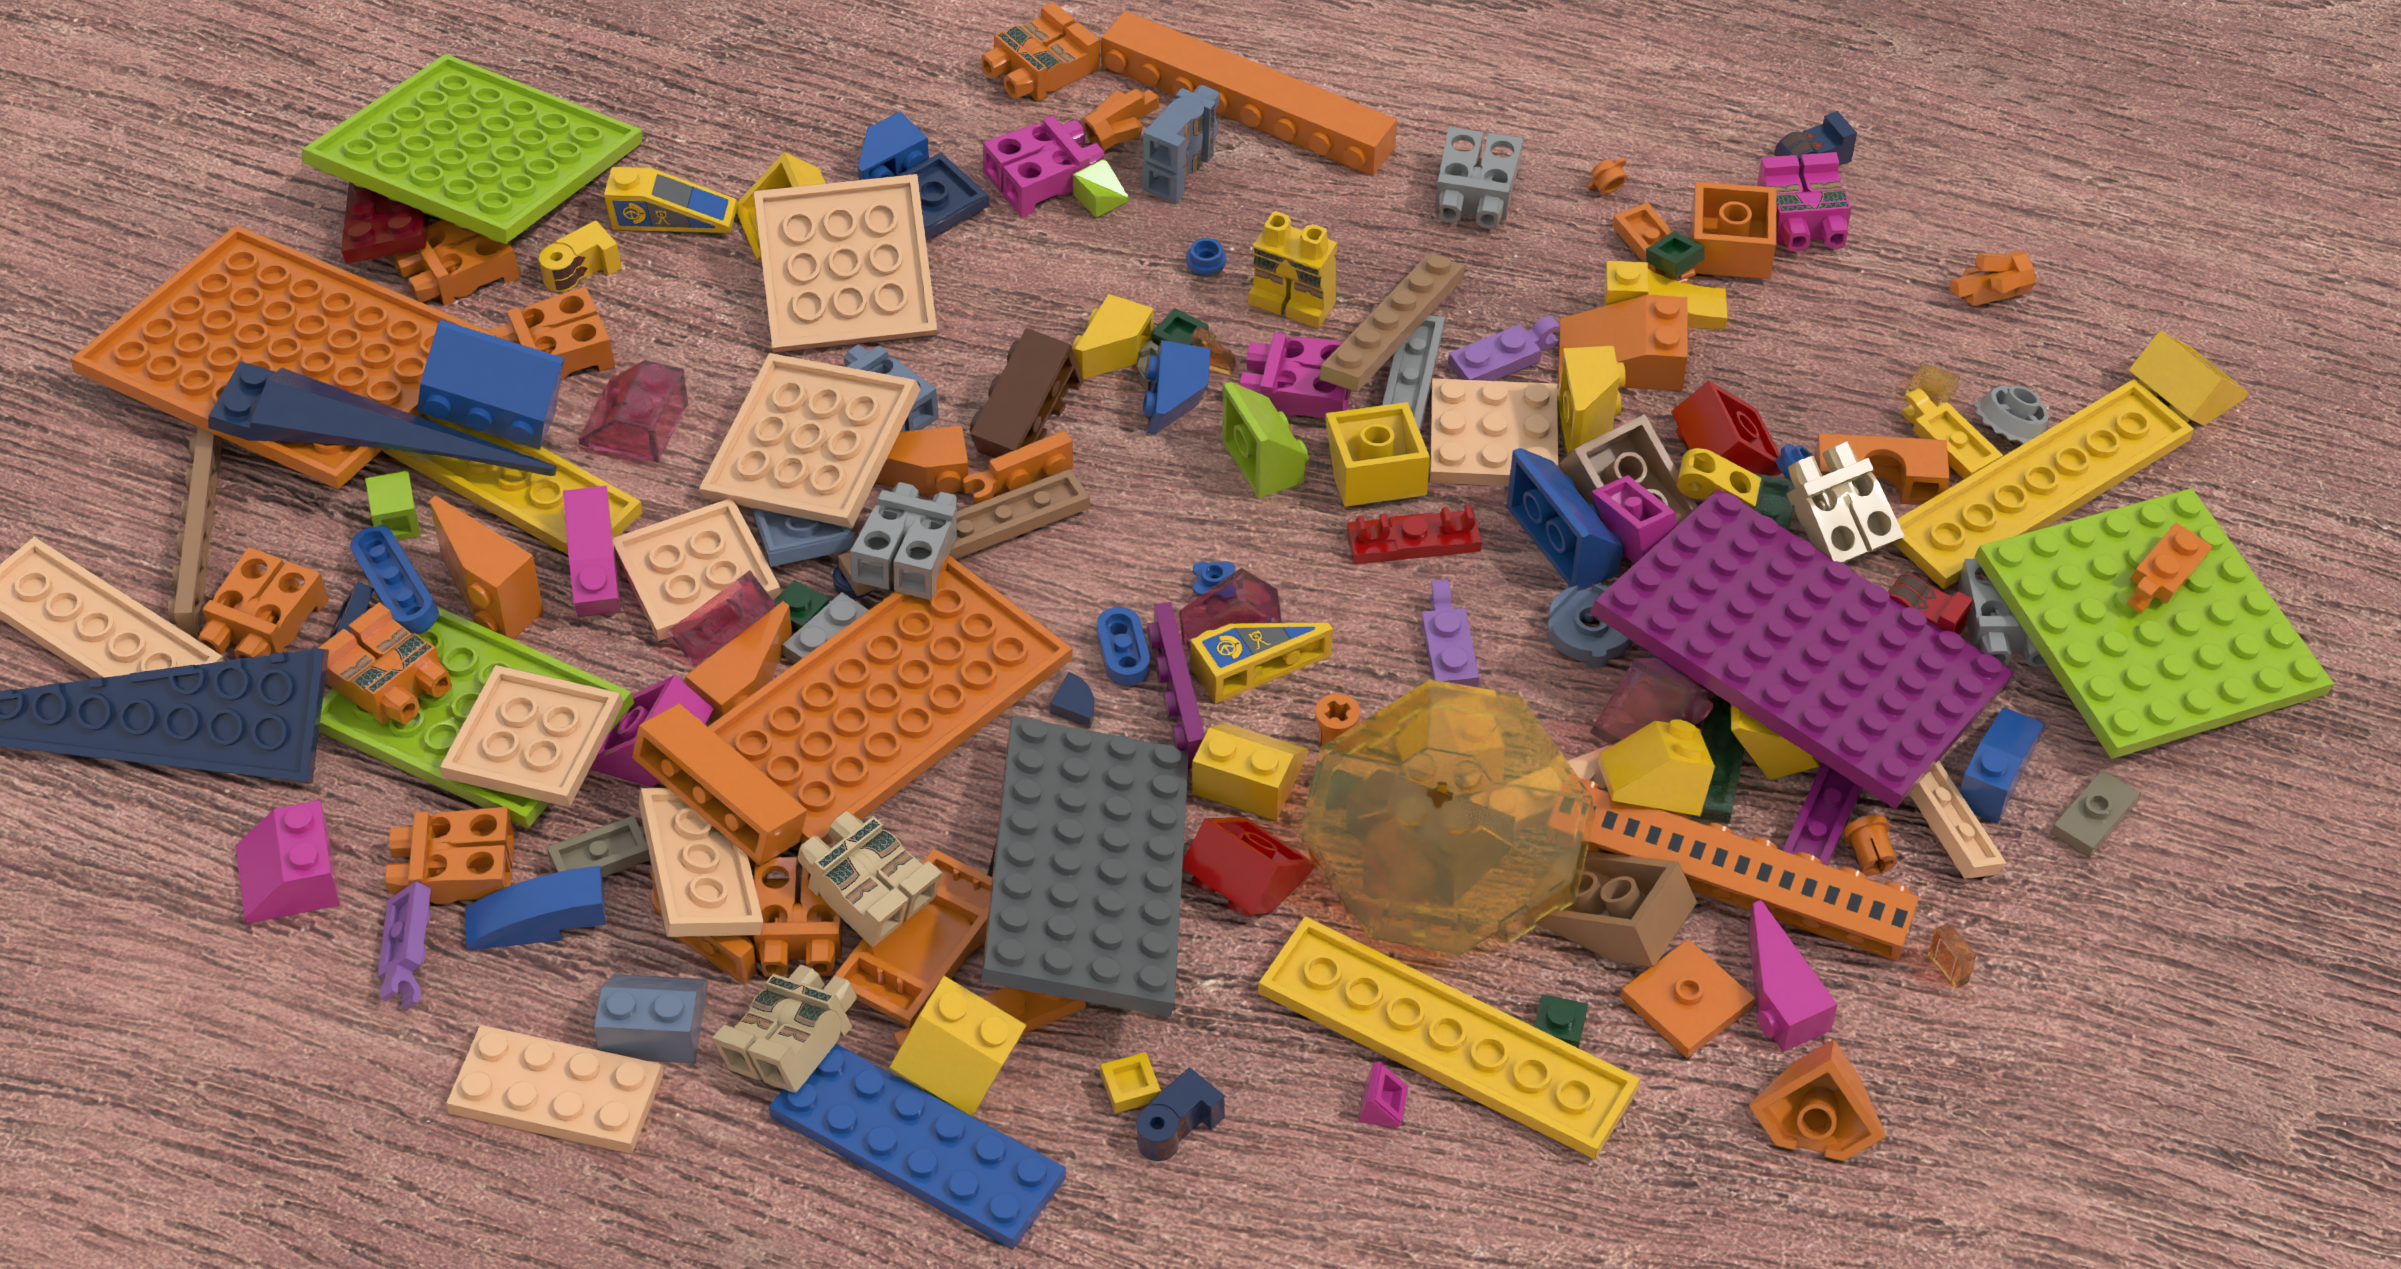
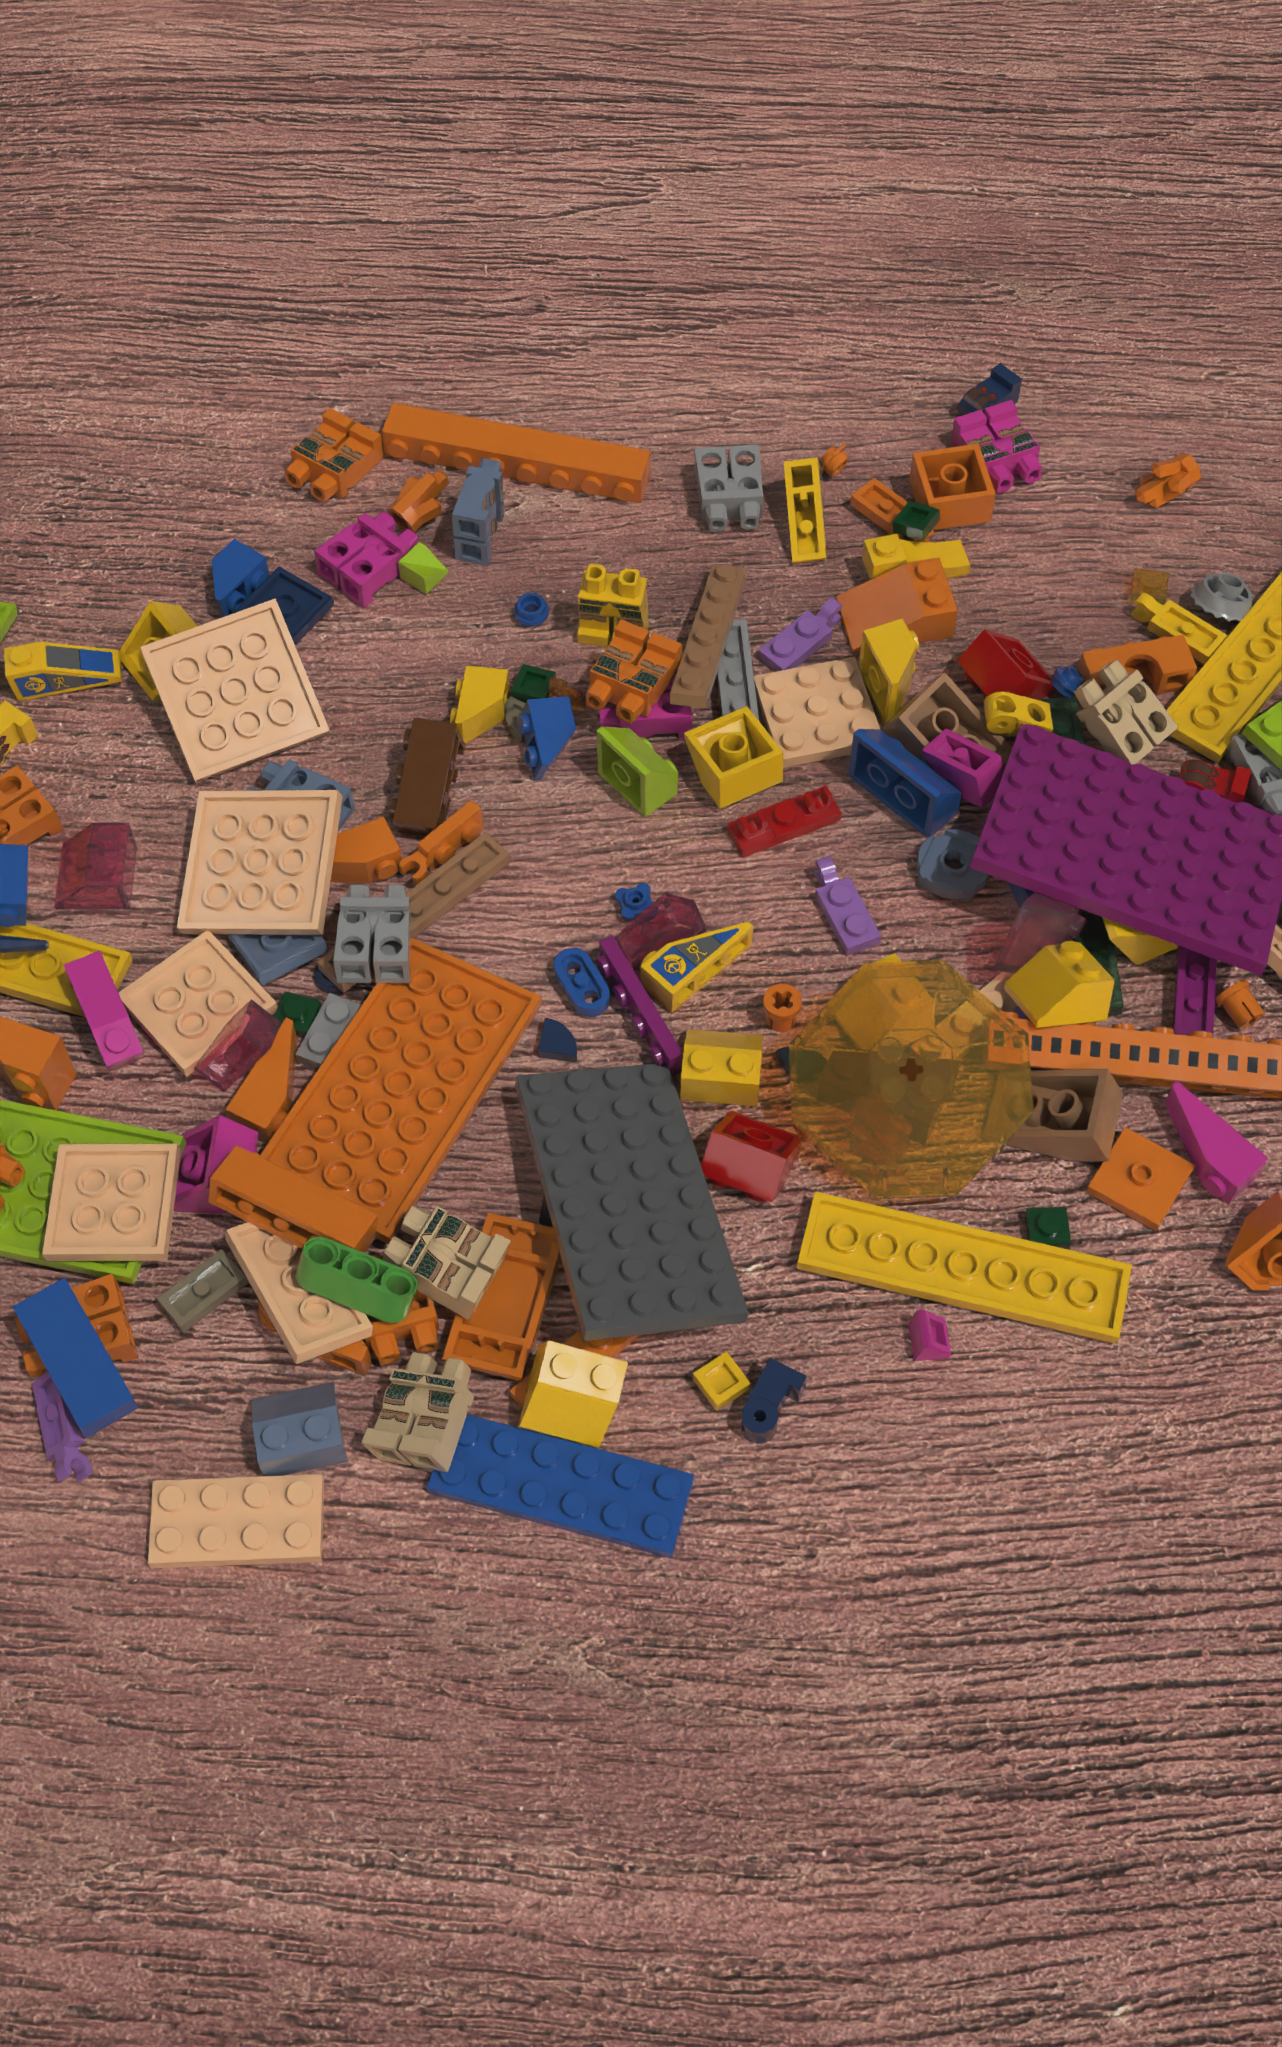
camera: 15 degrees left, 10 degrees up
(438, 875) = (75, 1357): none -> blue piece
(537, 909) = (173, 1356): blue slope -> none
(760, 868) = (356, 1279): none -> bright green beam
(1289, 337) = (633, 671): none -> orange hips
(1555, 217) = (805, 510): none -> yellow slope

